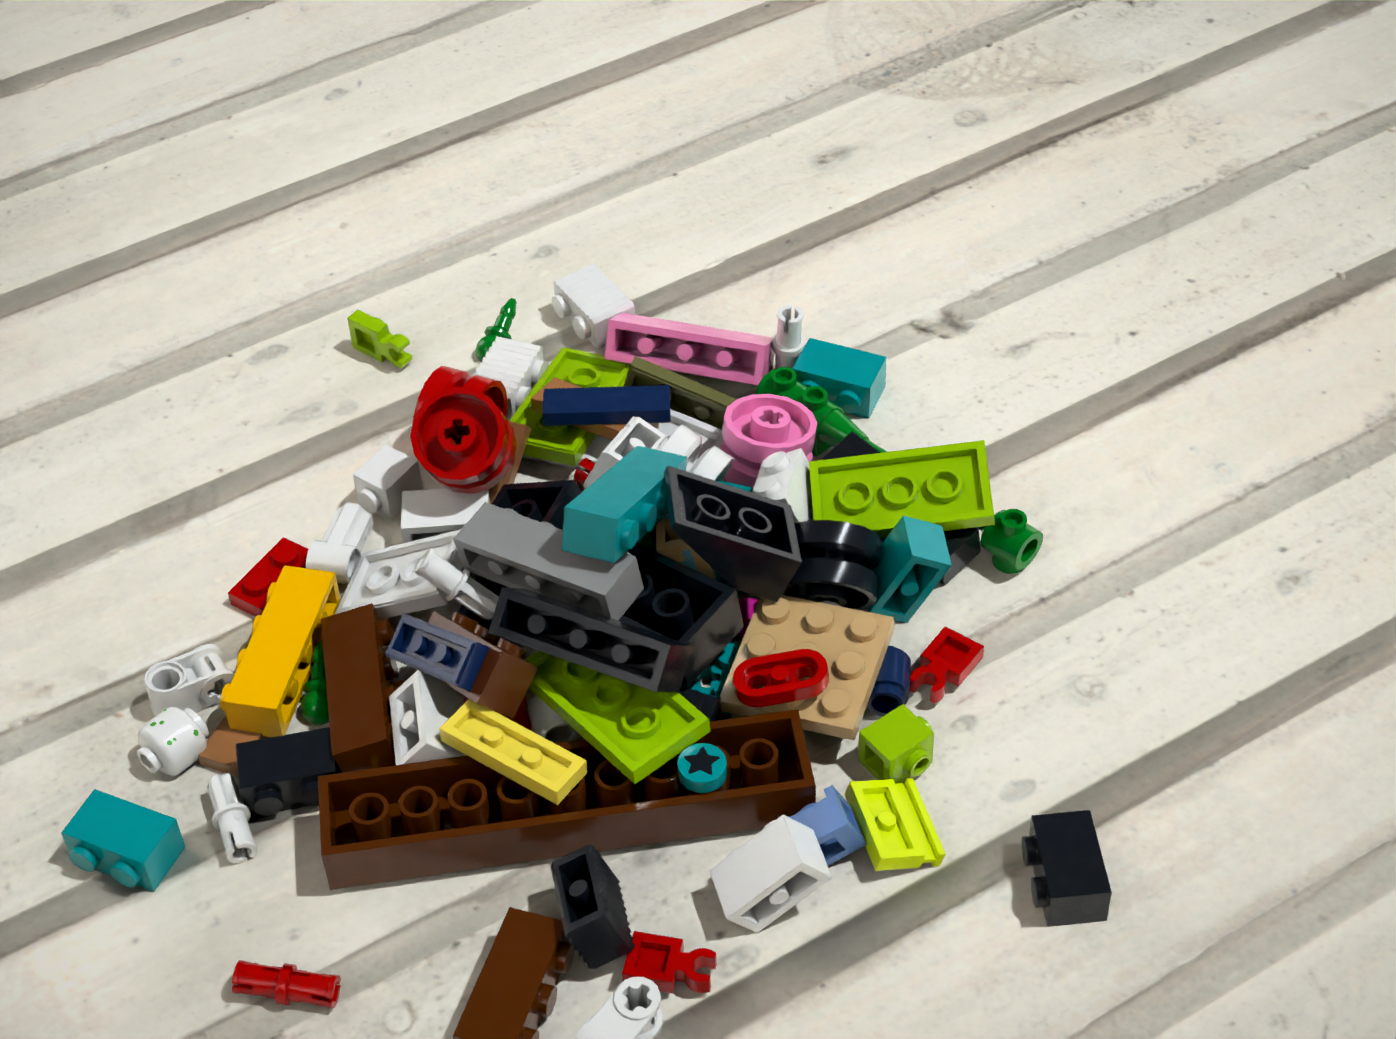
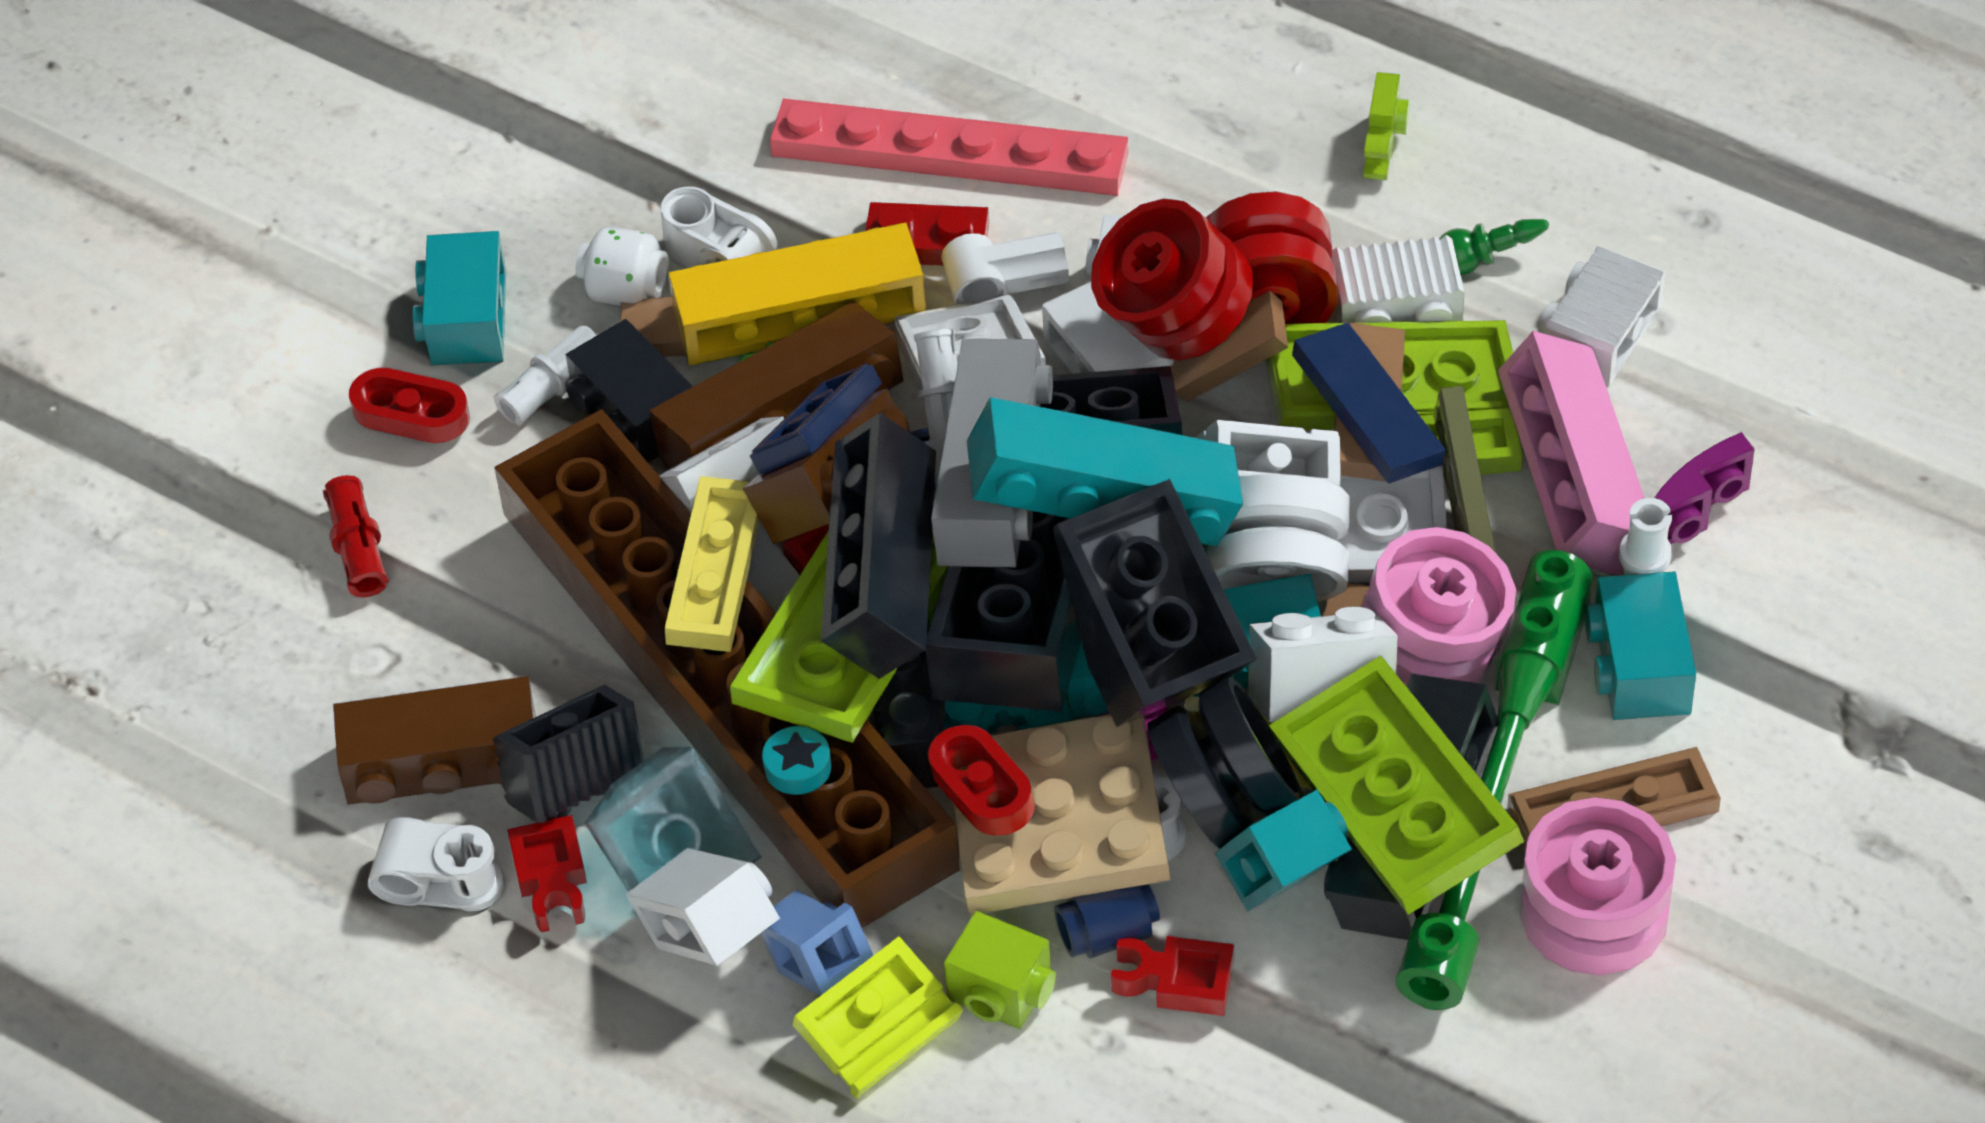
camera: 65 degrees right, 5 degrees up
(190, 909) = (416, 407): none -> red plate
(207, 544) = (950, 146): none -> coral plate
(672, 872) = (661, 812): none -> clear light blue slope
(745, 312) = (1708, 478): none -> magenta slope
(933, 418) = (1664, 786): none -> medium nougat tile
(1013, 446) = (1597, 886): none -> bright pink wheel

